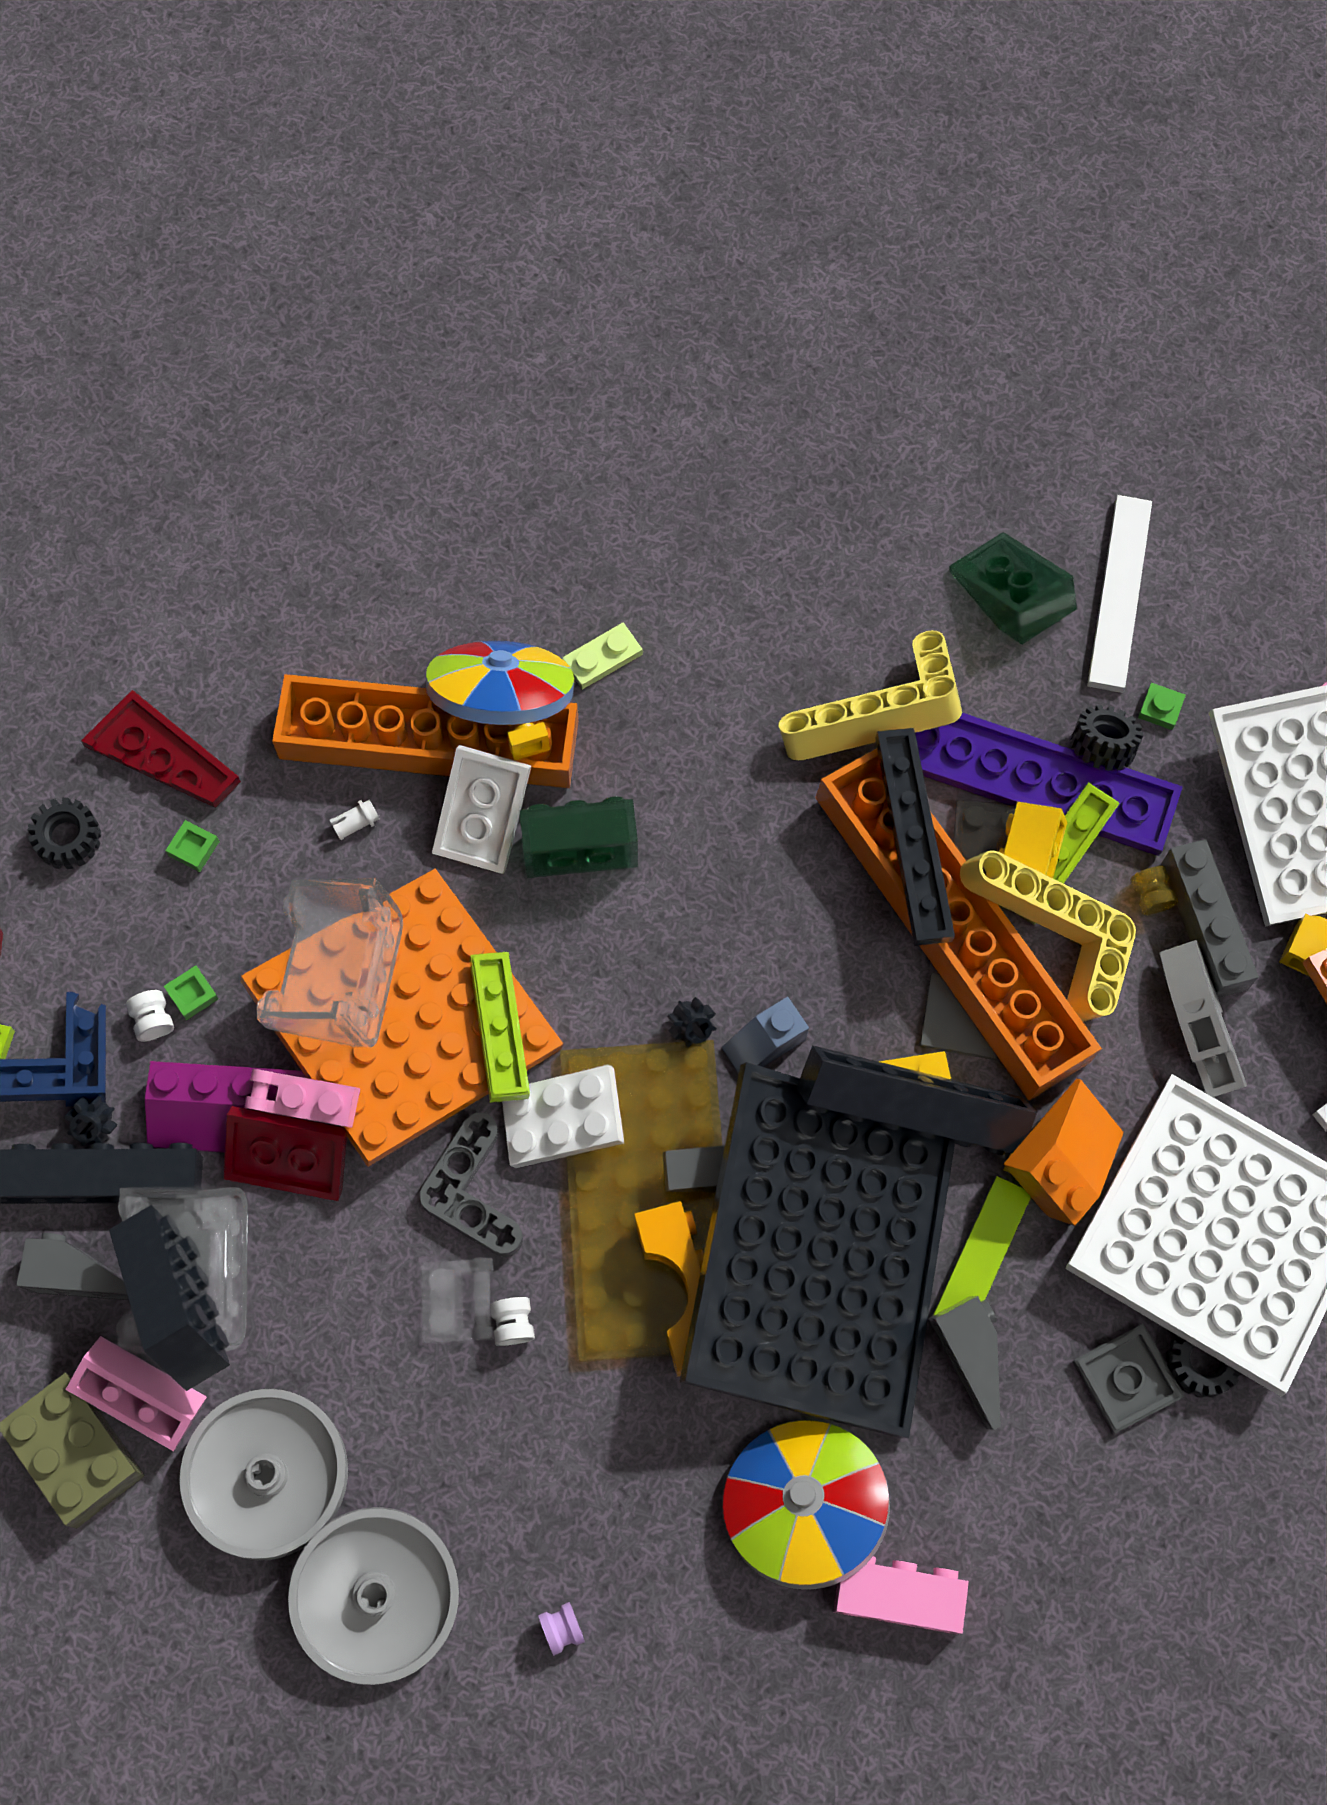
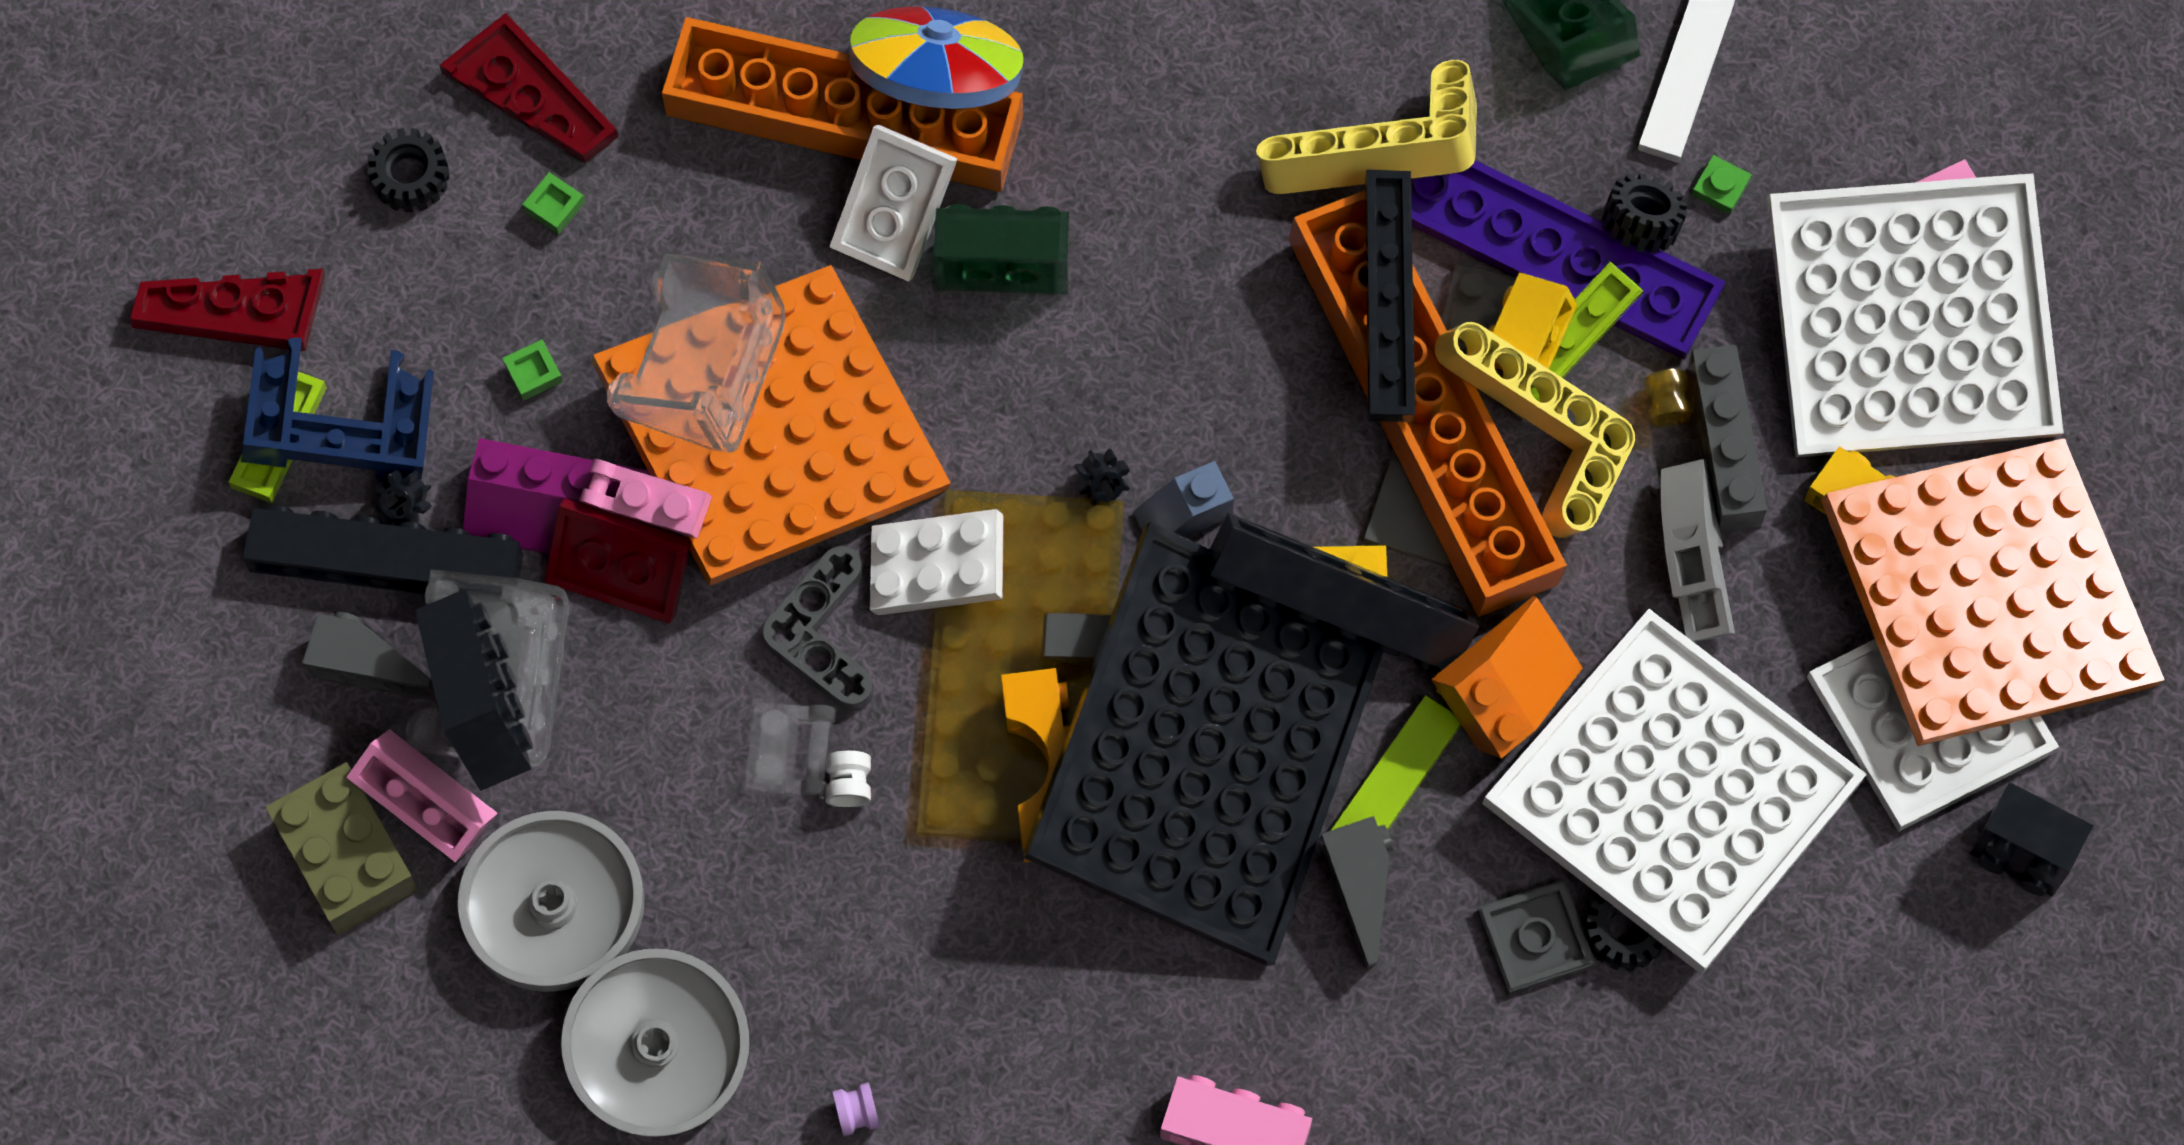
camera: 10 degrees right, 0 degrees up
(149, 1015) = (482, 389): white wheel -> none
(355, 819) = (745, 196): white pin -> none
(499, 1027) = (879, 452): lime tile -> none
(528, 740) = (958, 129): yellow plate -> none
(603, 655) = (1063, 41): yellowish green plate -> none
(806, 1504) = (1146, 1015): dish -> none

